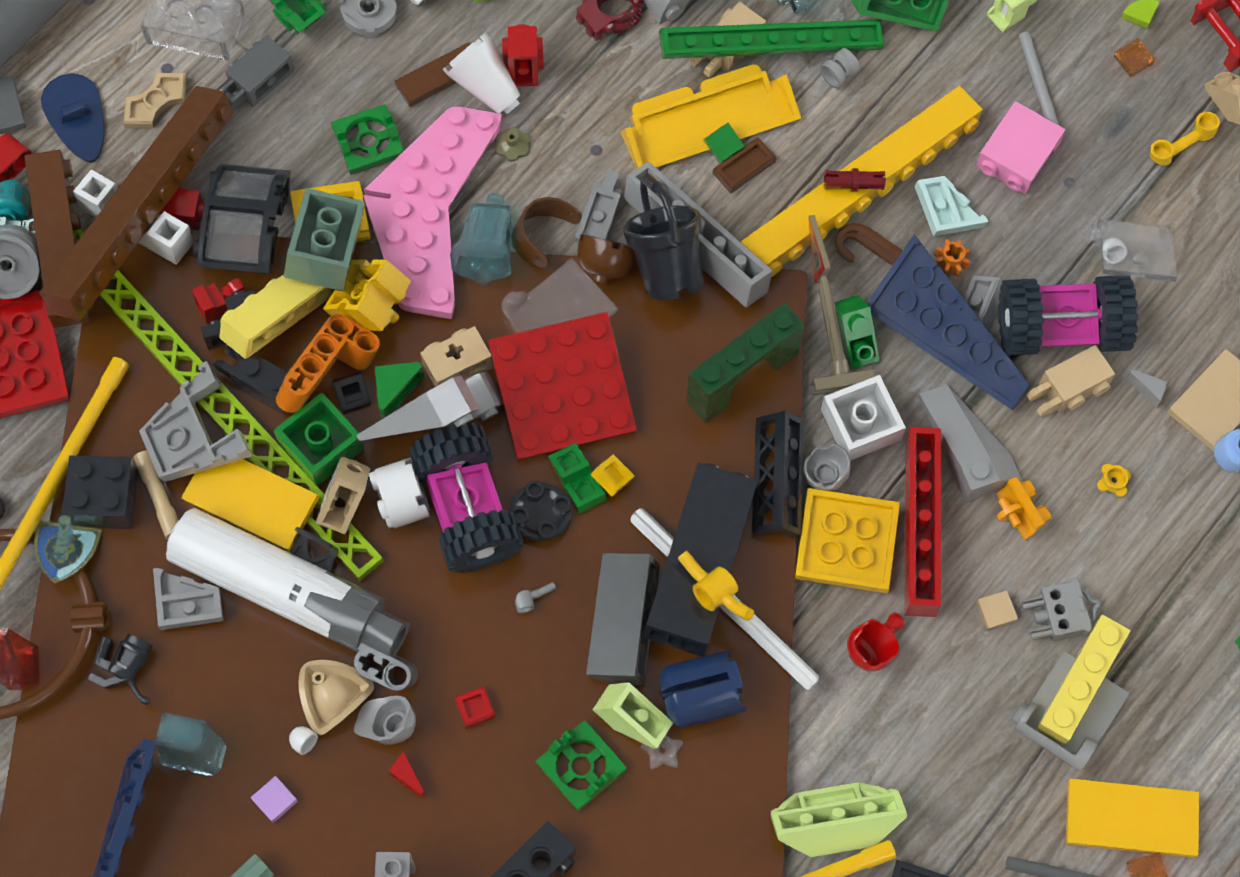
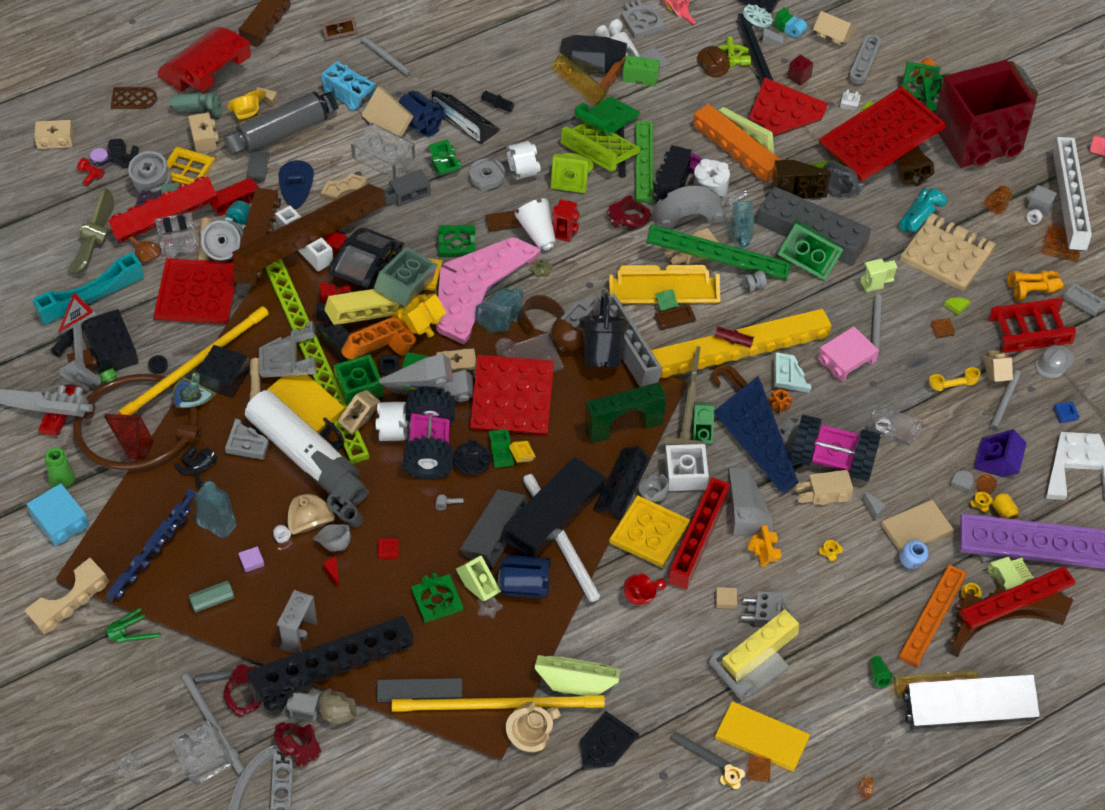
camera: 20 degrees right, 15 degrees down
(715, 588) = (552, 518): yellow piece -> none

